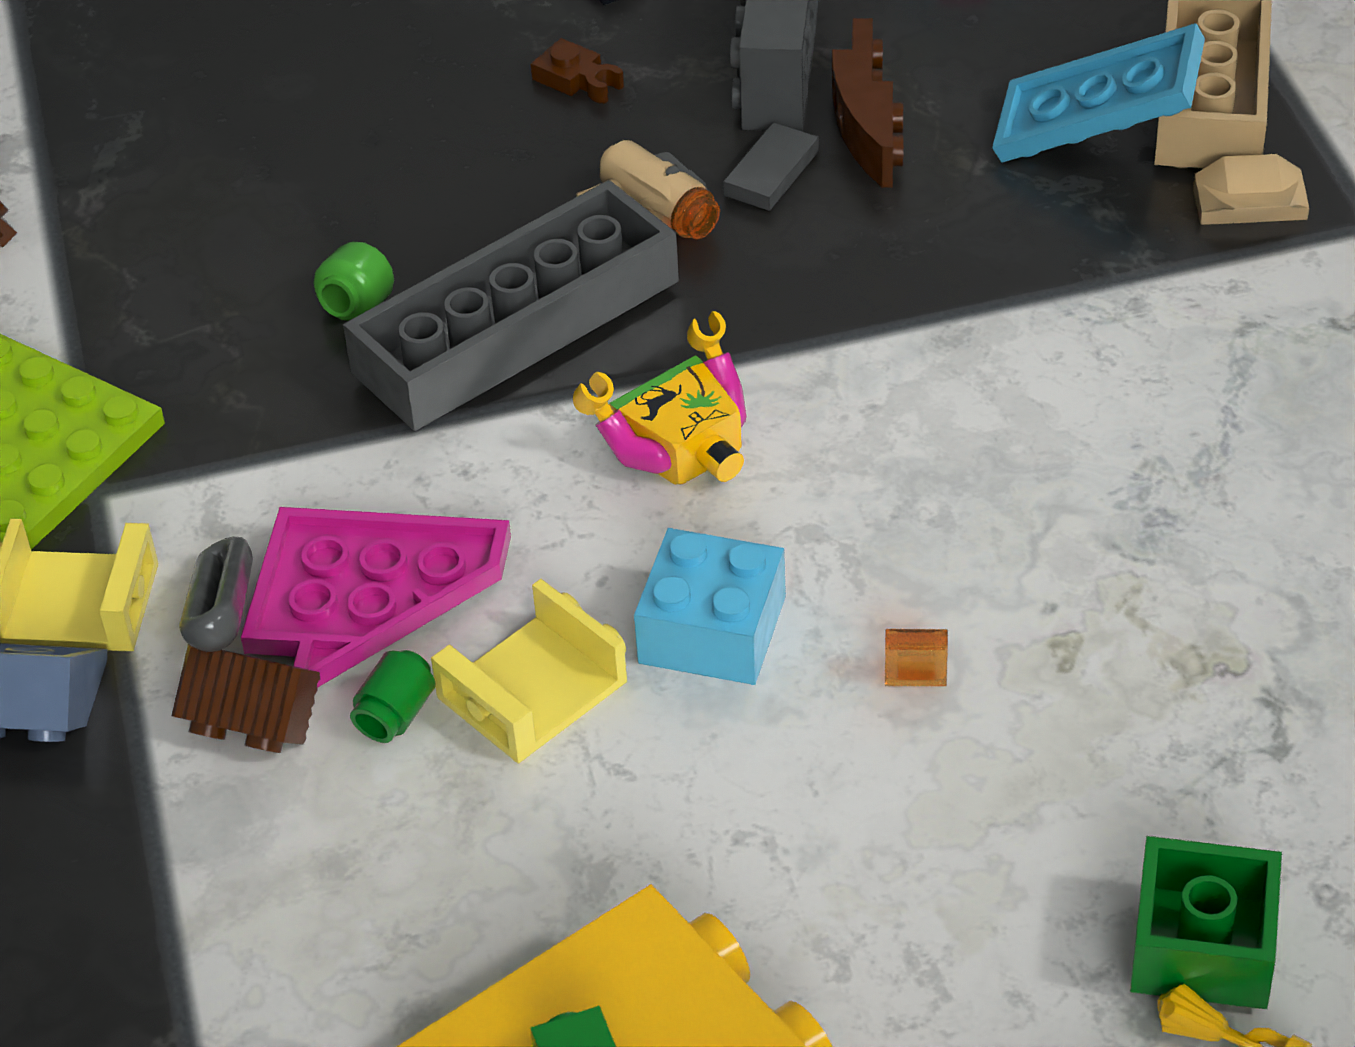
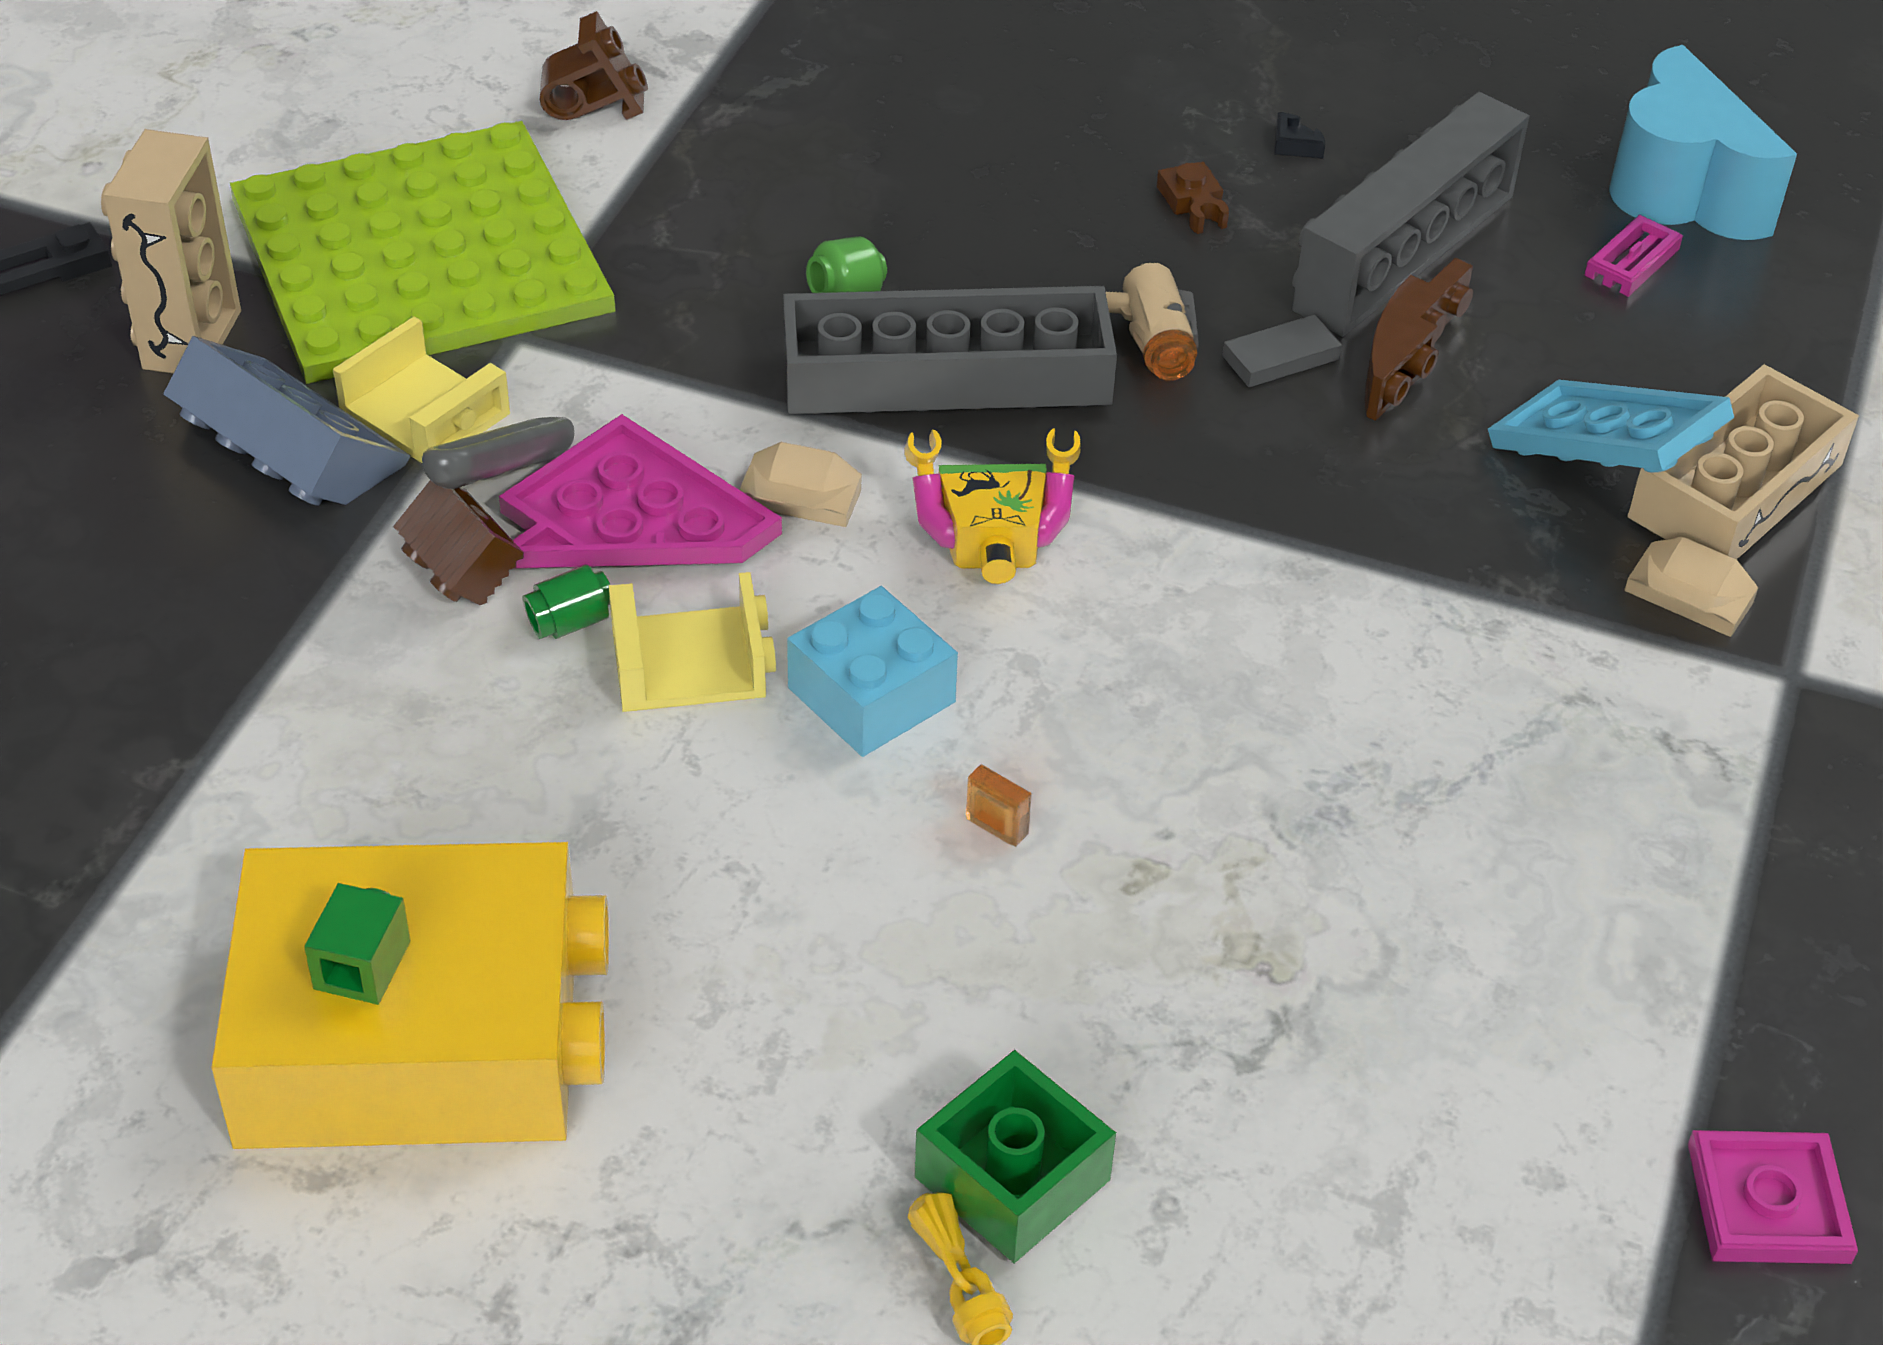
camera: 30 degrees right, 0 degrees up
(489, 482) = (803, 483): none -> tan slope

